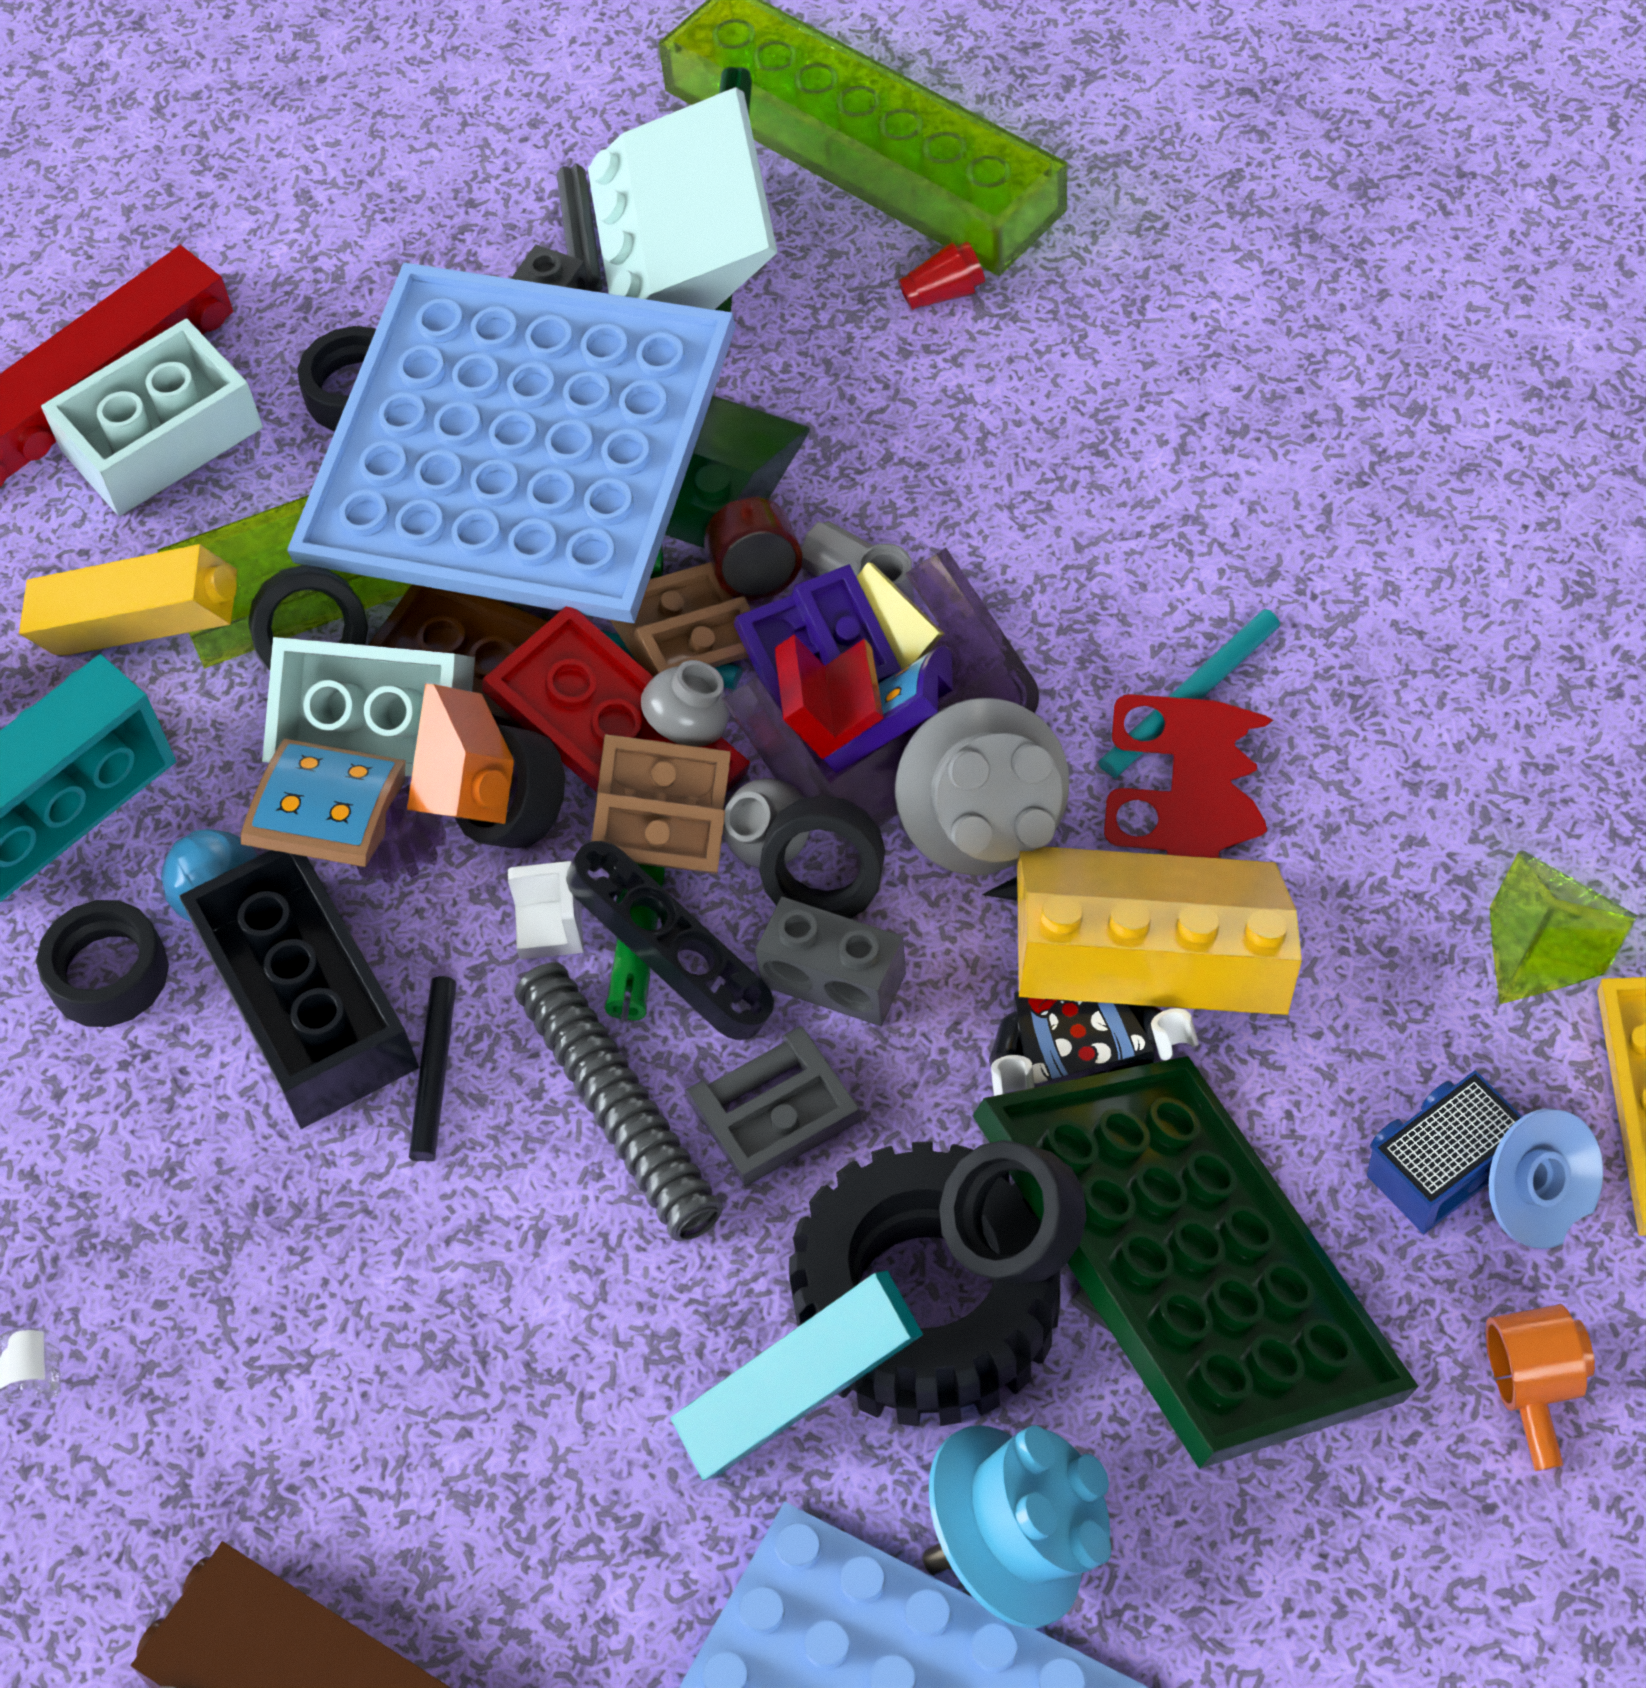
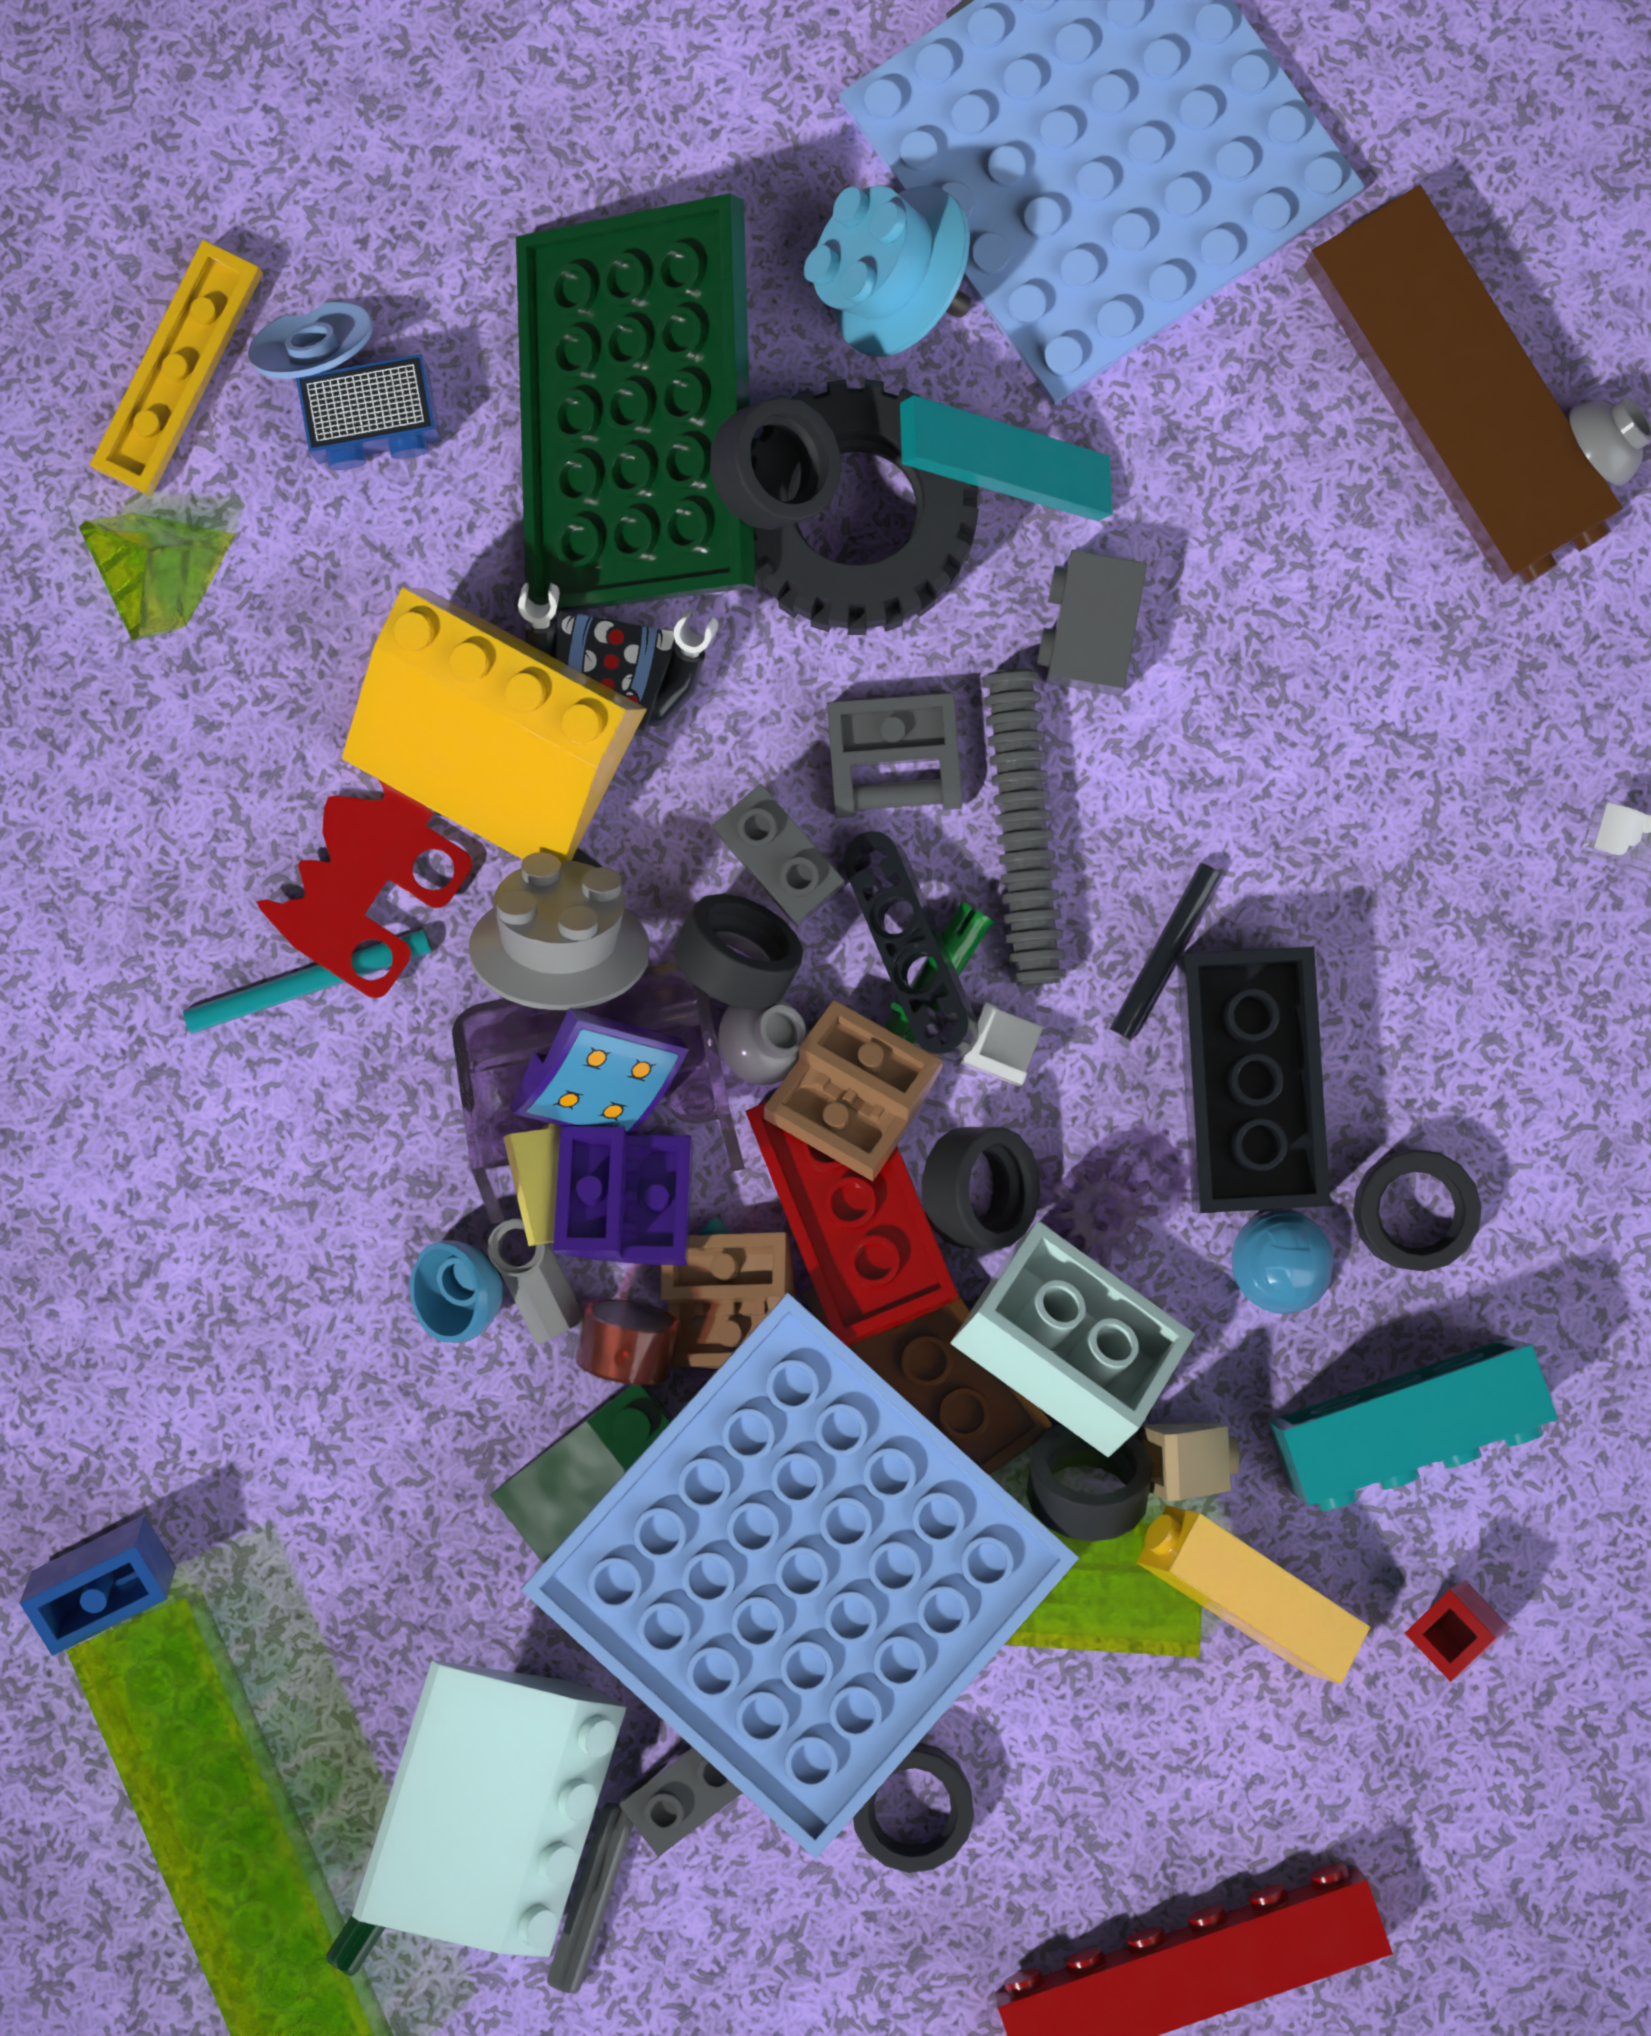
camera: 155 degrees left, 30 degrees up
(153, 416) = (1139, 1852): light aqua brick -> none
(225, 677) = (1190, 1459): none -> tan slope
(323, 802) = (1160, 1235): slope -> none
(460, 758) = (1019, 1205): orange slope -> none
(637, 1305) = (1094, 622): none -> dark grey brick
(687, 704) = (780, 1186): light grey piece -> none
(828, 701) = (649, 1103): red panel -> none
(916, 522) = (455, 1291): none -> dark azure piece
(943, 276) = (260, 1609): red cone -> none
(1074, 226) = (98, 1585): none -> blue brick
(1548, 1365) = (412, 195): orange piece -> none

